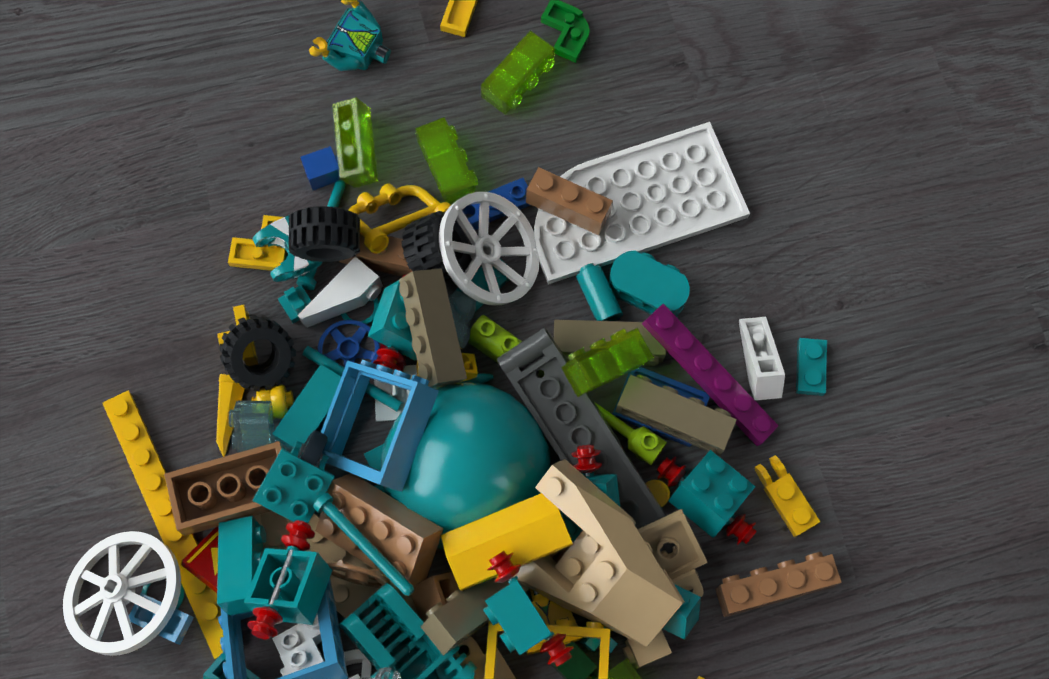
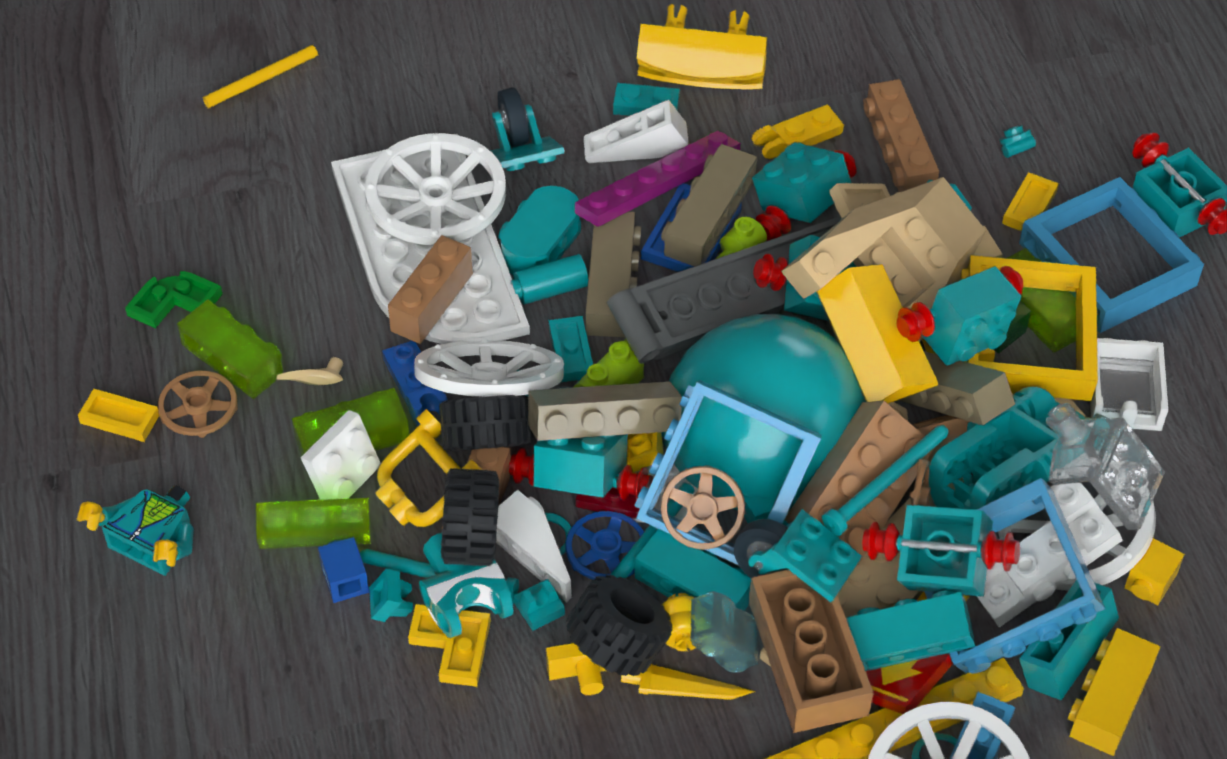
camera: 85 degrees left, 20 degrees down
(299, 198) = (387, 594): none -> teal tile
(348, 405) = (703, 507): none -> wheel
(405, 154) = (341, 459): none -> white plate
(472, 58) = (197, 402): none -> medium nougat wheel
(498, 135) = (320, 376): none -> tan bar
(530, 314) = (571, 344): none -> teal plate
(606, 361) = (654, 243): clear neon green brick -> none
(673, 191) = (435, 192): none -> white wheel
(741, 266) = (513, 127): none -> teal plate
(807, 63) = (260, 76): none -> yellow piece
(857, 408) = (702, 56): none -> yellow piece

